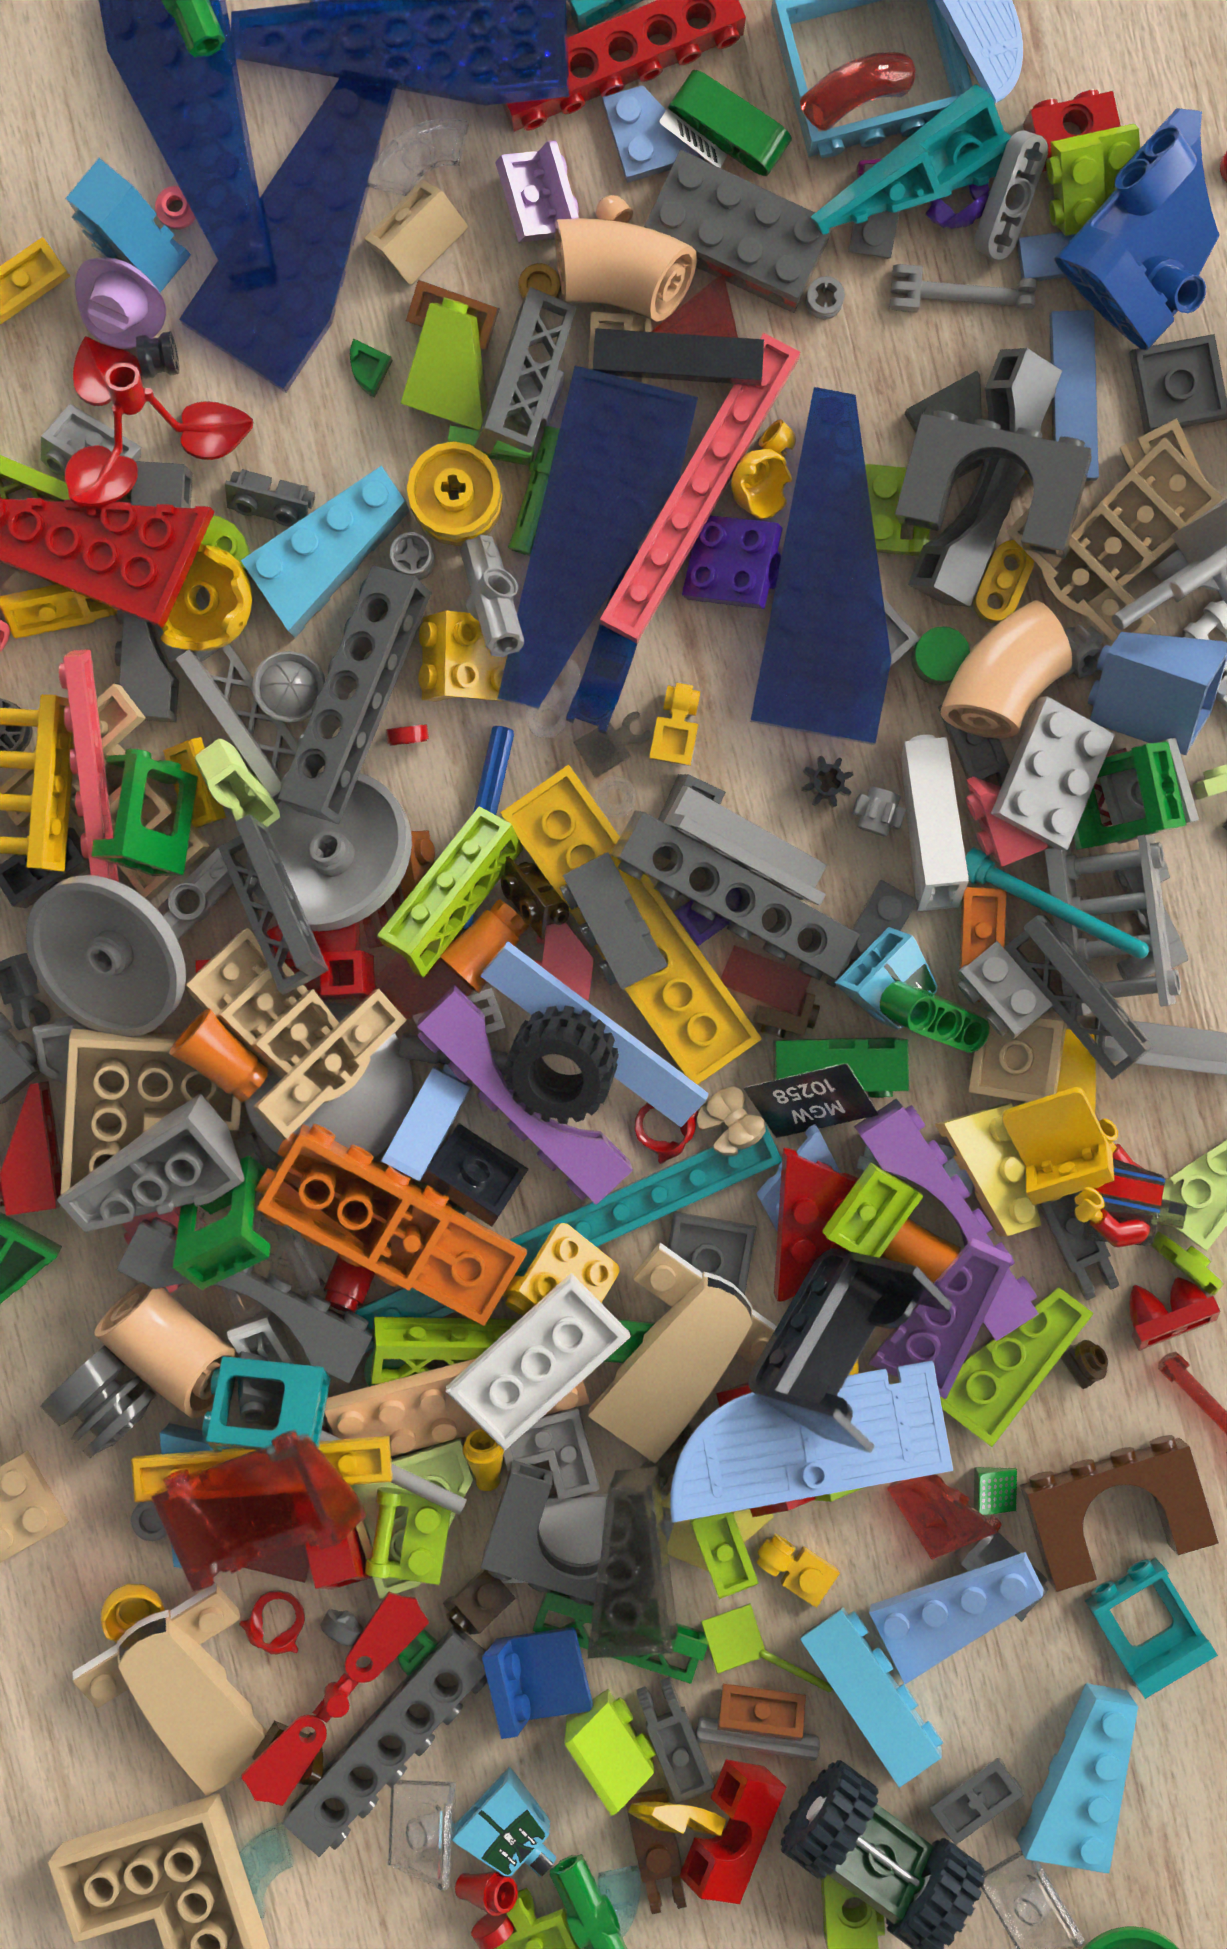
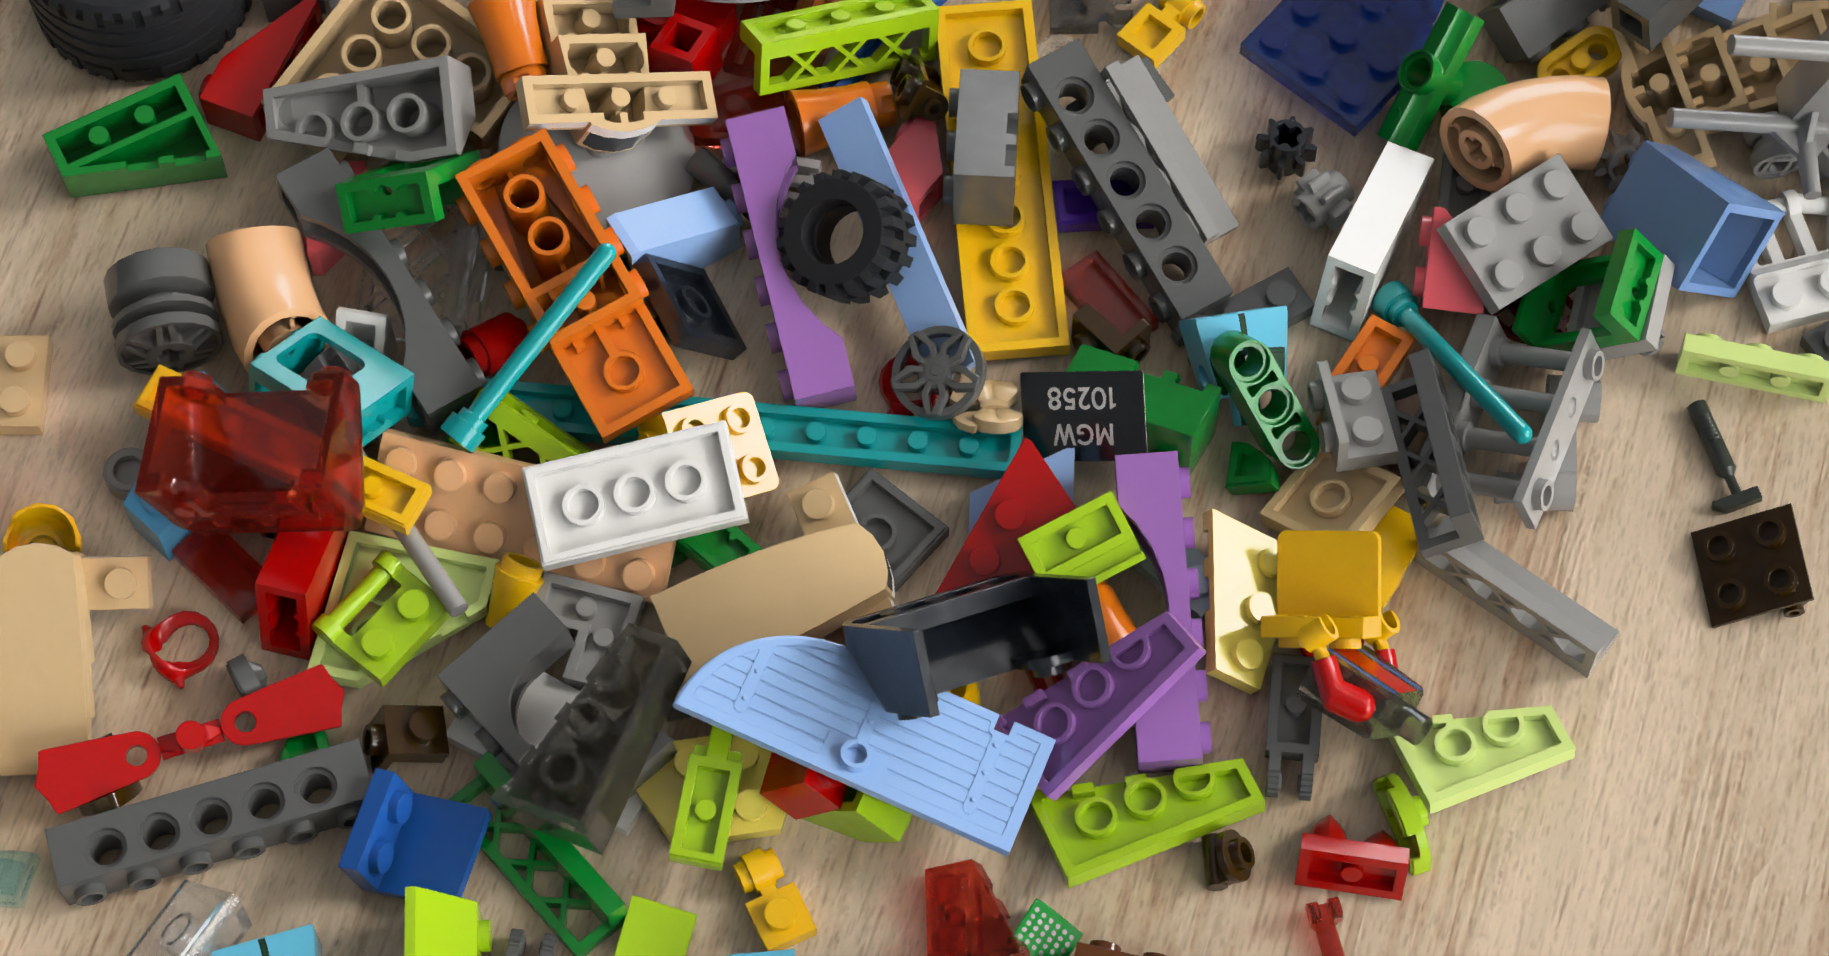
camera: 30 degrees right, 25 degrees down
(384, 1380) = (470, 423): none -> teal piece
(686, 1123) = (938, 372): none -> dark grey wheel
(914, 651) = (1430, 77): none -> green piece
(943, 1060) = (1250, 471): none -> green tile

